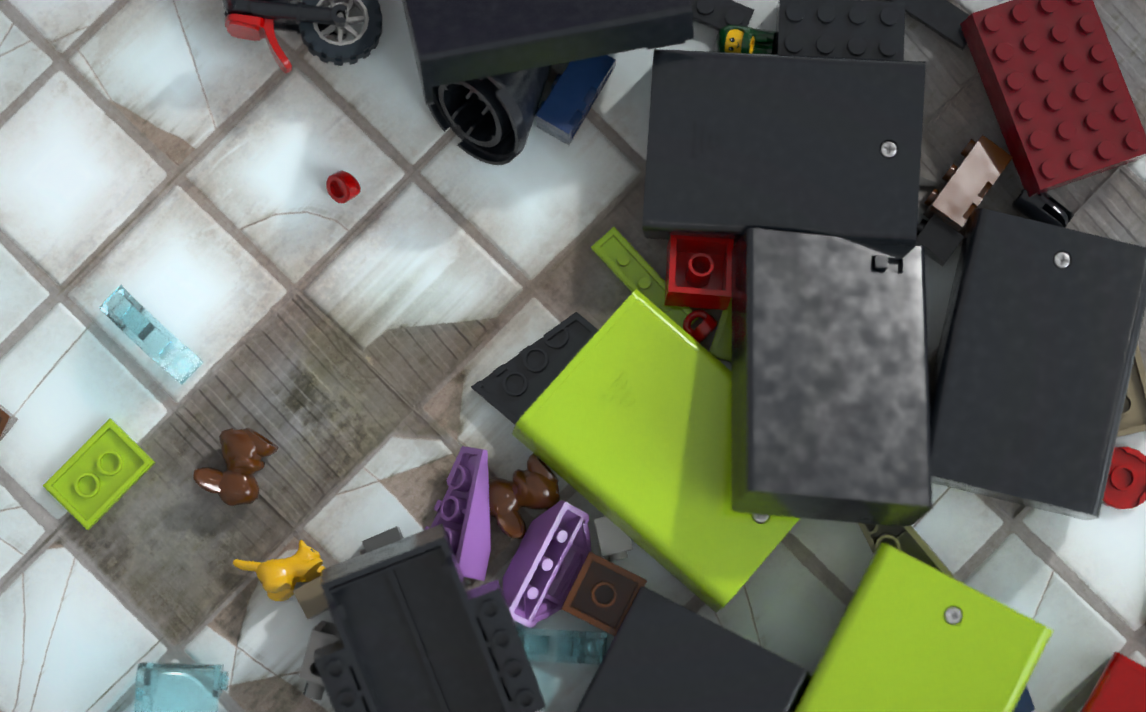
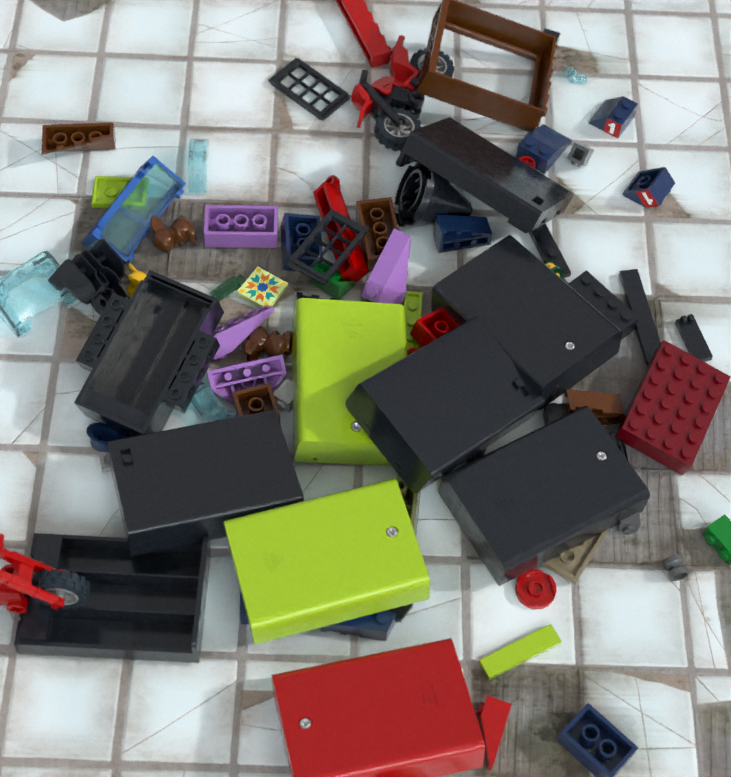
camera: 40 degrees right, 25 degrees down
(90, 70) = (329, 109): none -> black piece
(156, 491) = (130, 213): none -> clear light blue windscreen
(209, 625) = (92, 276): none -> black piece
(308, 369) = (241, 226): none -> medium lavender brick
(383, 468) = (227, 287): none -> clear green cylinder
(403, 314) = (294, 231): none -> dark blue slope
(423, 423) = (262, 288): none -> tile
(432, 248) = (328, 198): none -> red brick
(470, 356) = (315, 275): none -> black piece
(482, 202) = (380, 219): none -> reddish brown brick
(491, 322) = (337, 286): none -> green slope
(566, 256) = (390, 273): none -> medium lavender wedge

